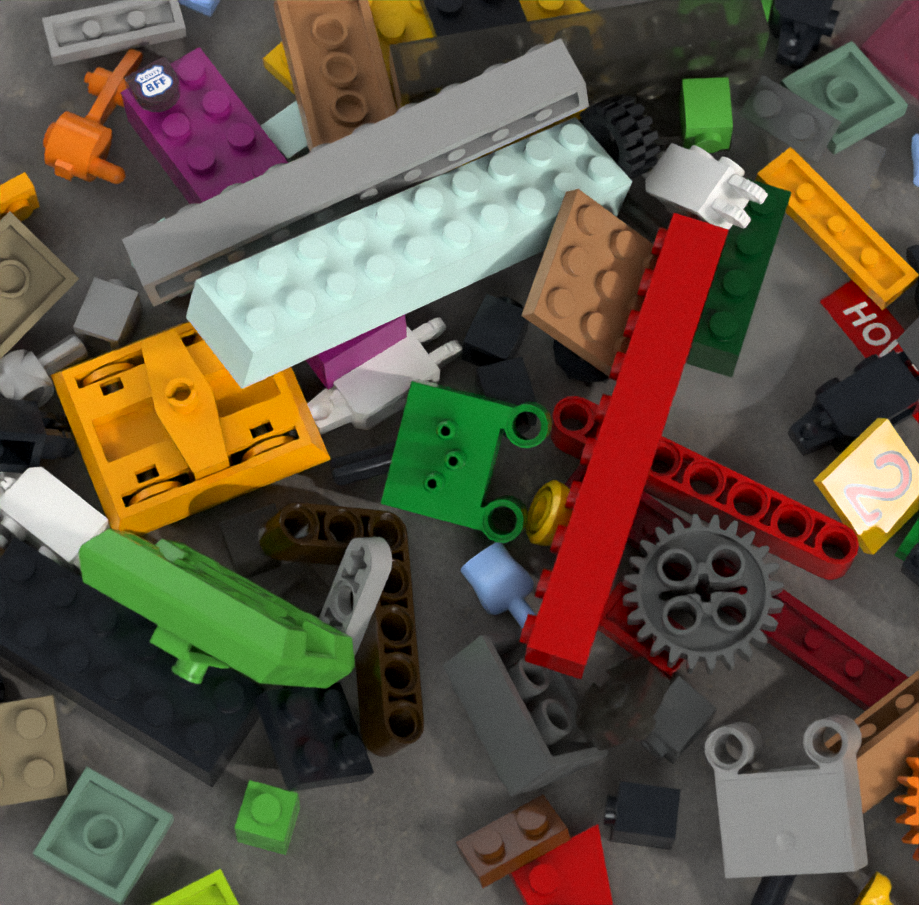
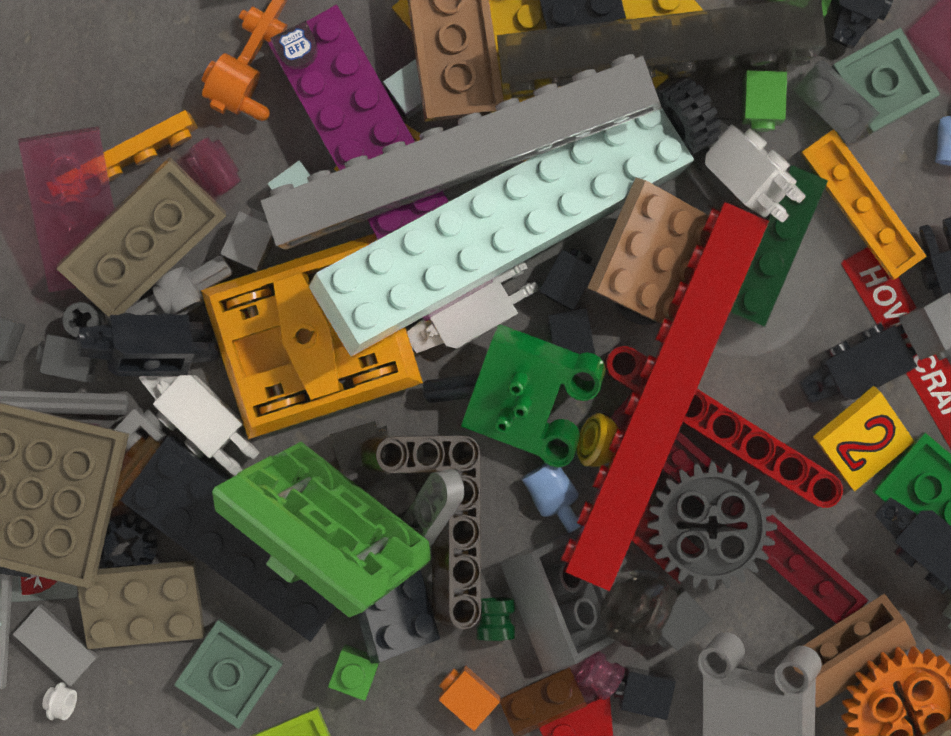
camera: 10 degrees right, 20 degrees up
(63, 237) = (214, 166): none -> clear pink brick
(416, 838) = (468, 696): none -> orange brick
(442, 742) = (495, 619): none -> dark green wheel
(583, 796) = (600, 675): none -> clear pink wheel

